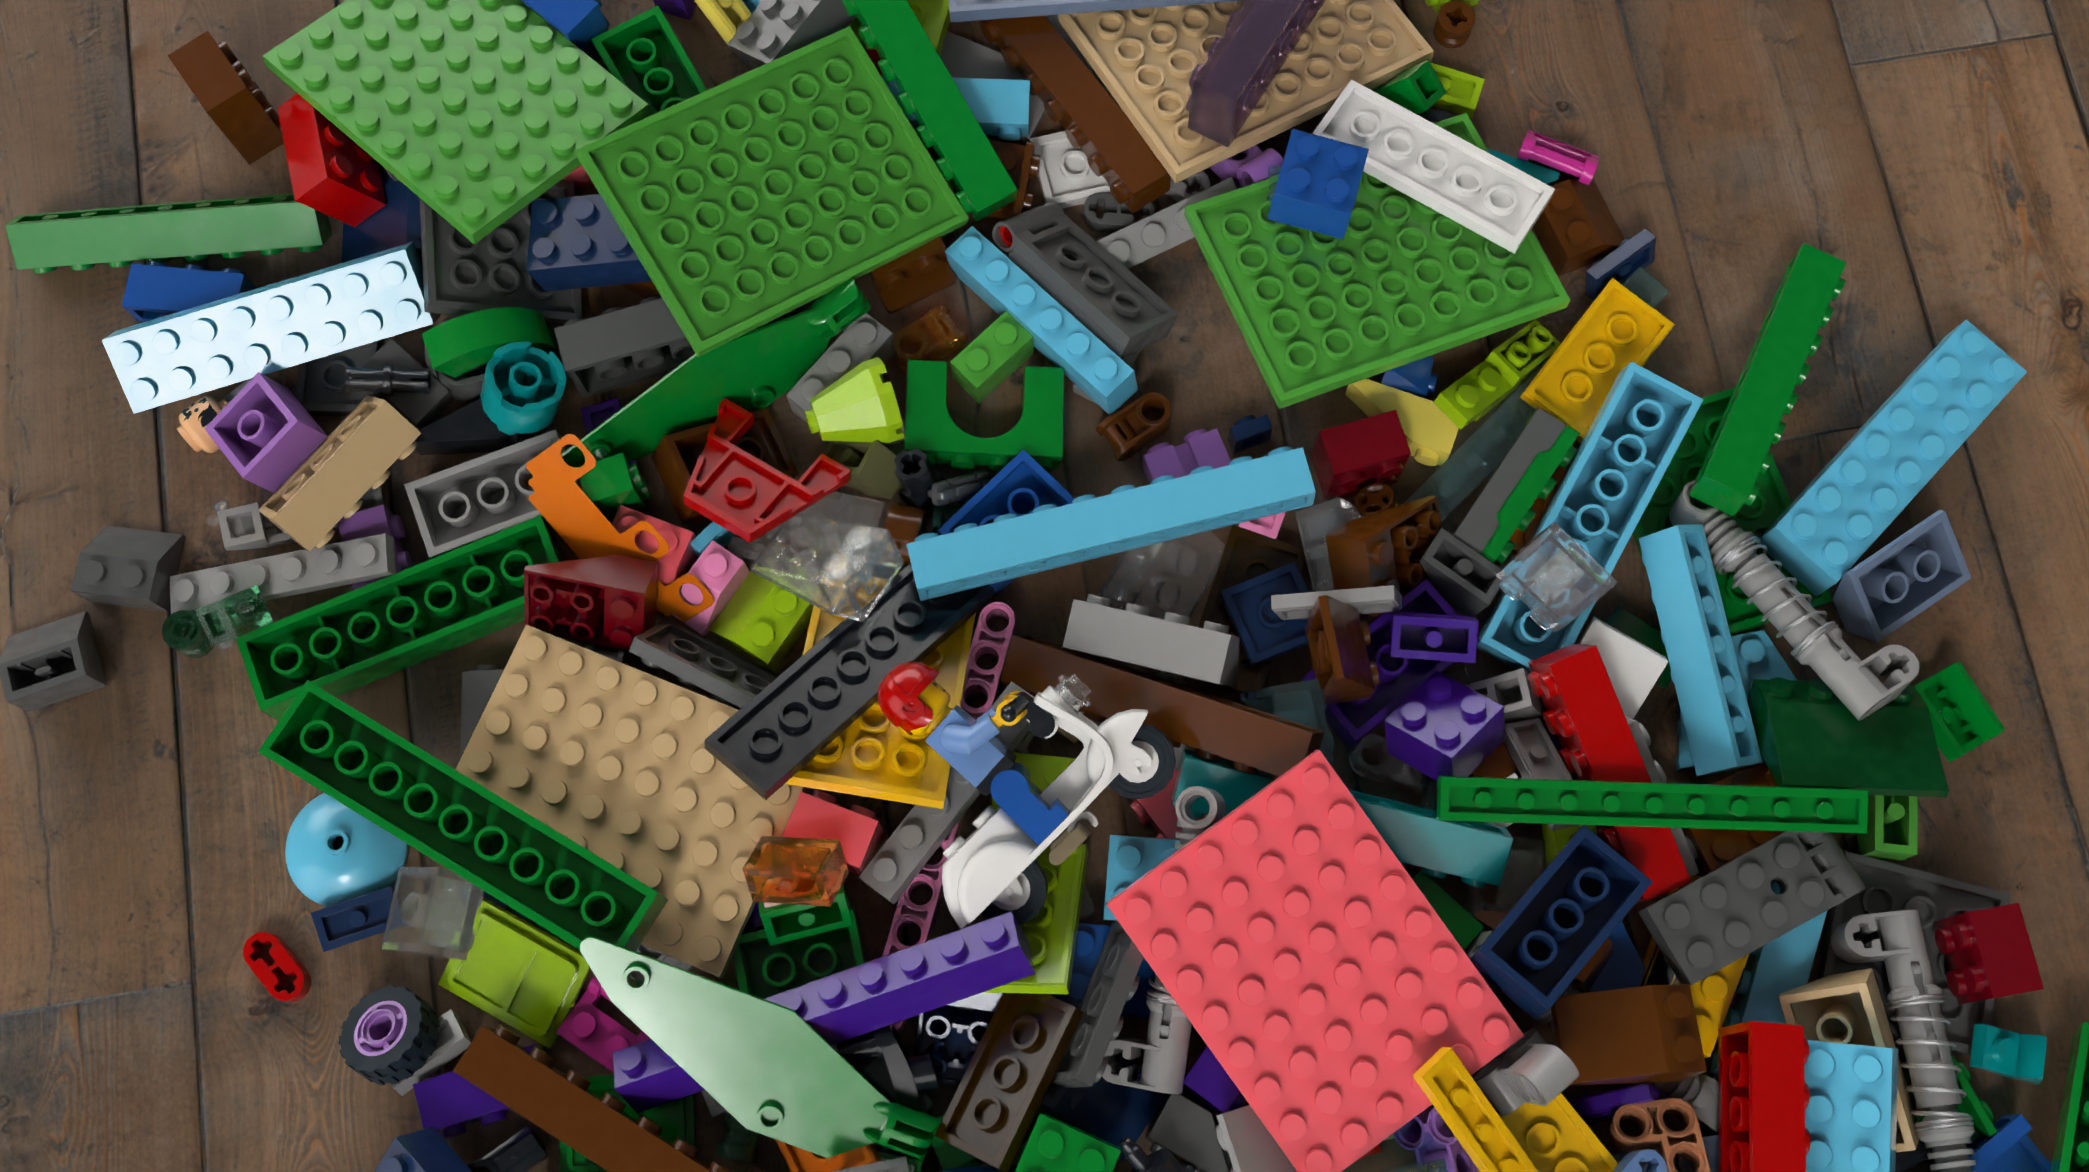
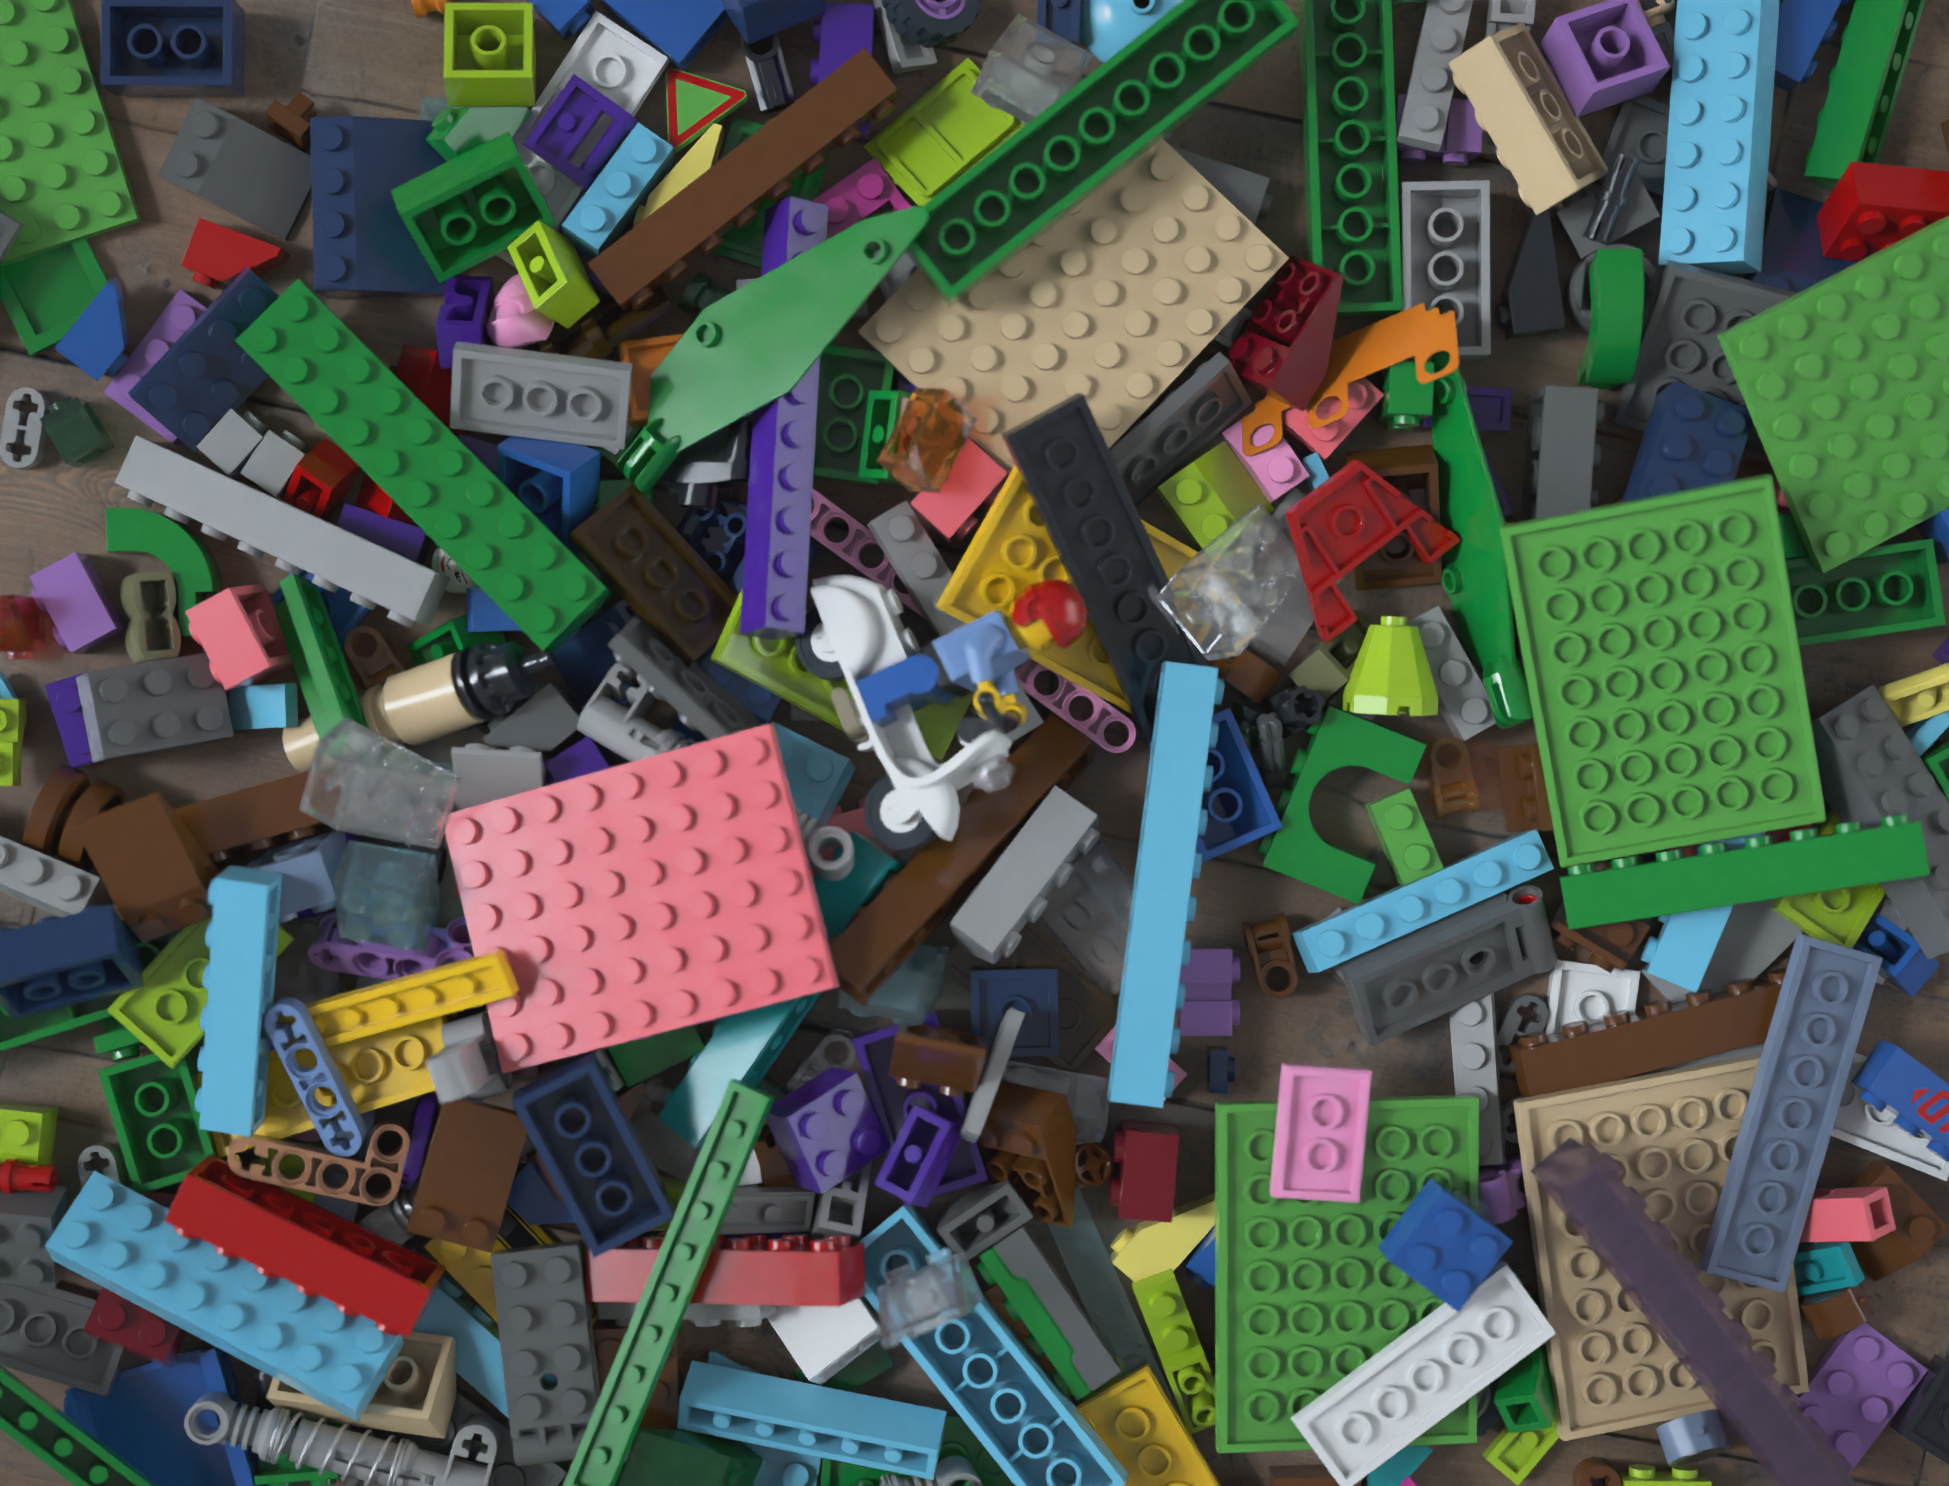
camera: 110 degrees right, 15 degrees up
(522, 388) = (1564, 351): teal brick -> none
(1268, 313) = (1320, 1132): none -> bright pink tile

